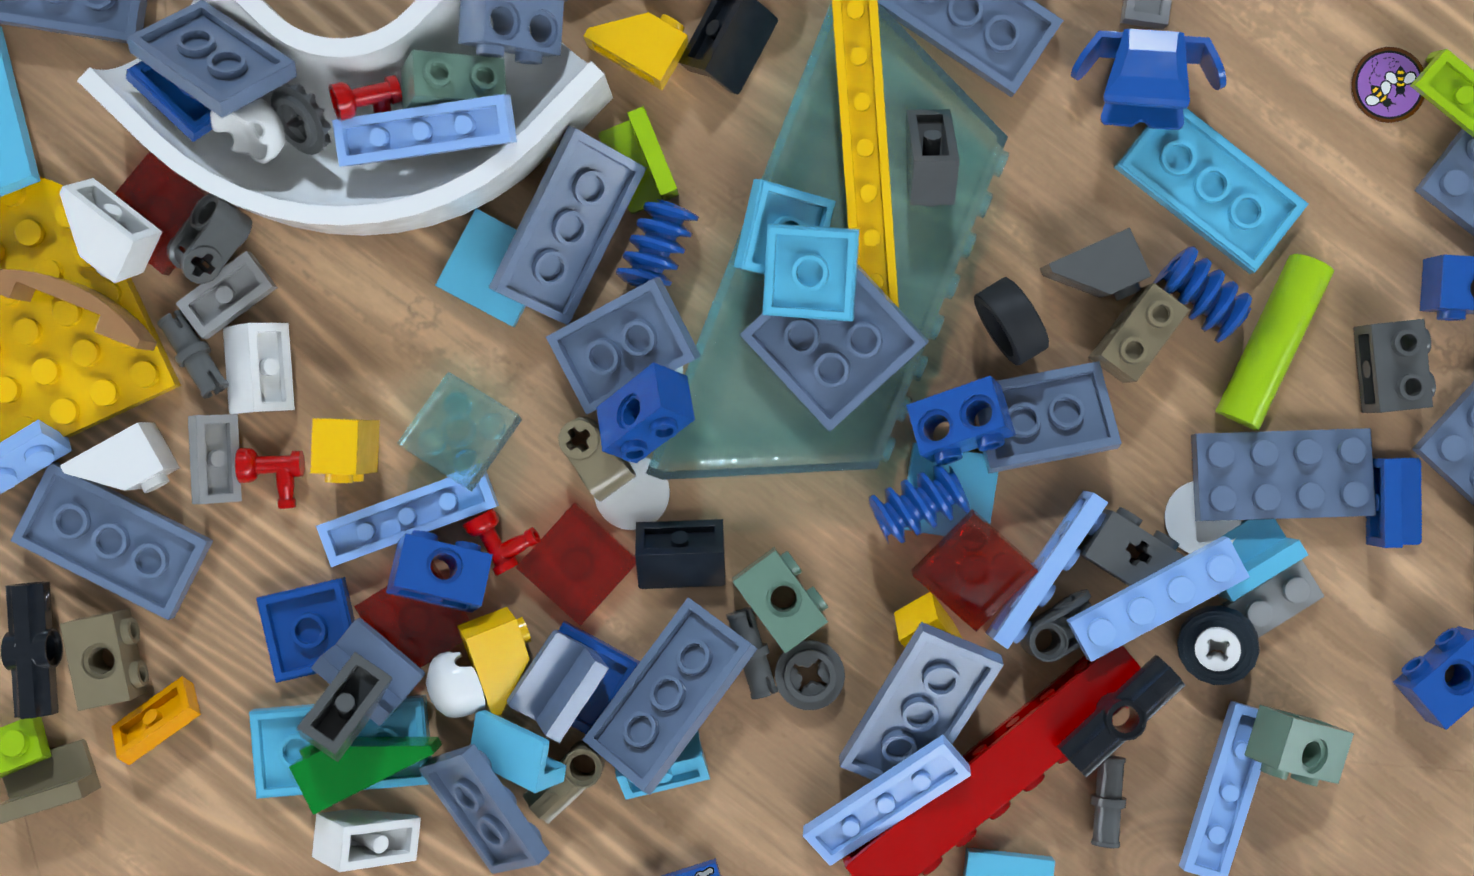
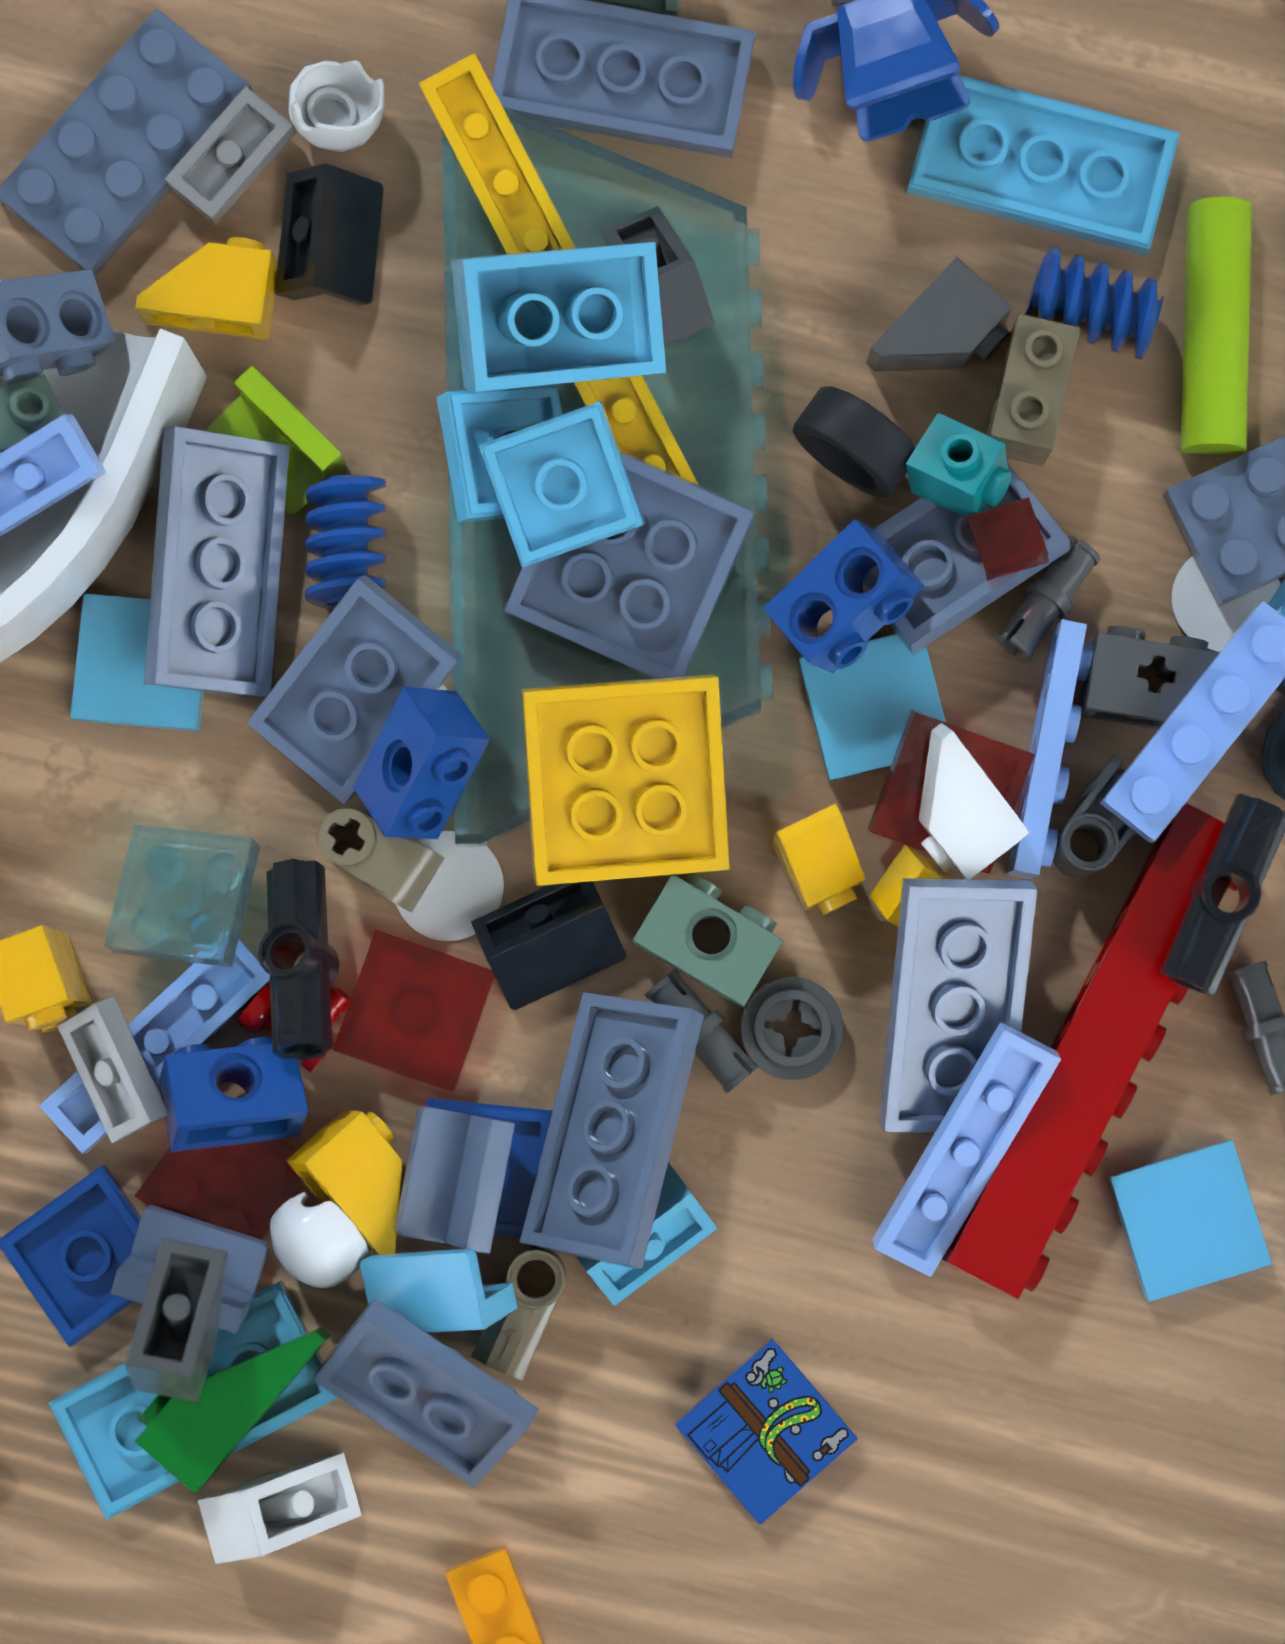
camera: 20 degrees left, 5 degrees down
(370, 526) = (112, 1069): none -> light grey plate
(507, 527) = (301, 991): none -> black piece
(771, 479) = (625, 779): none -> yellow plate
(855, 160) = (558, 316): none -> medium azure slope
(872, 580) = (820, 860): none -> yellow slope
(919, 503) = (835, 731): blue piece -> none
(978, 590) = (963, 809): none -> white slope
(1071, 367) = (959, 468): none -> teal brick
(1082, 427) = (1008, 539): none -> clear red tile
(1088, 473) = (1047, 599): none -> dark grey pin

